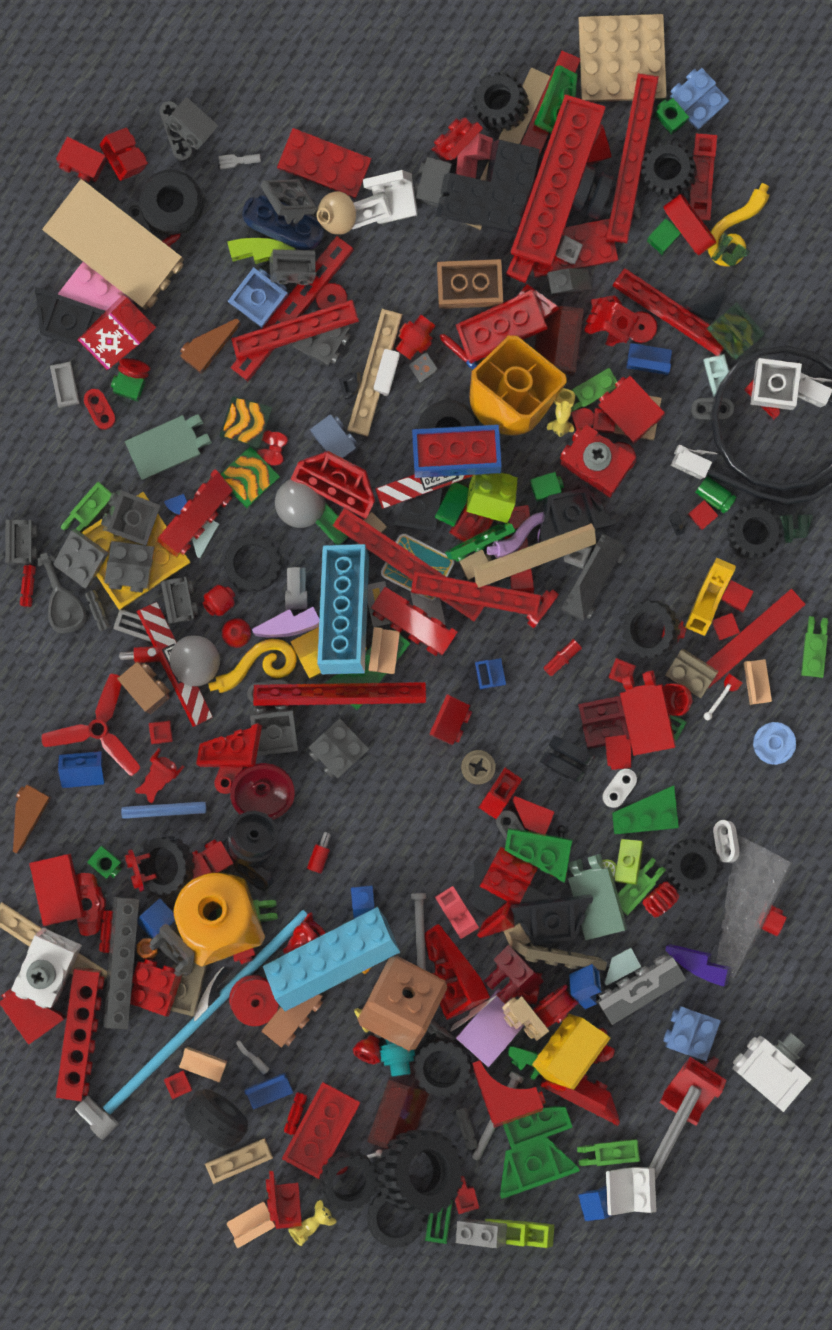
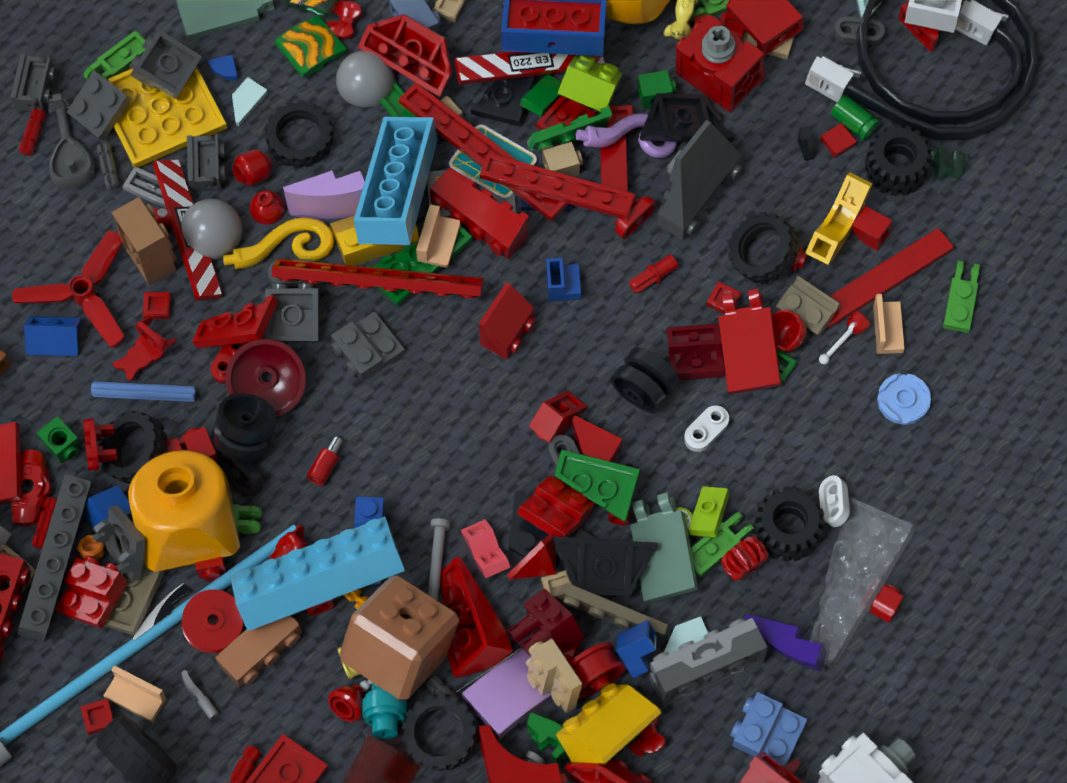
camera: 10 degrees right, 20 degrees down
(129, 566) = (153, 118): dark grey plate -> none
(196, 514) = (241, 69): red wedge -> none
(269, 1090) = (212, 737): blue panel -> none
(296, 589) = (346, 158): light grey piece -> none
(482, 776) = (532, 374): dark tan gear -> none
(534, 555) = (623, 151): tan tile -> none
(618, 752) = (709, 385): red sticker -> none
(648, 814) = (738, 463): green wing -> none
(725, 626) = (854, 262): red tile -> none

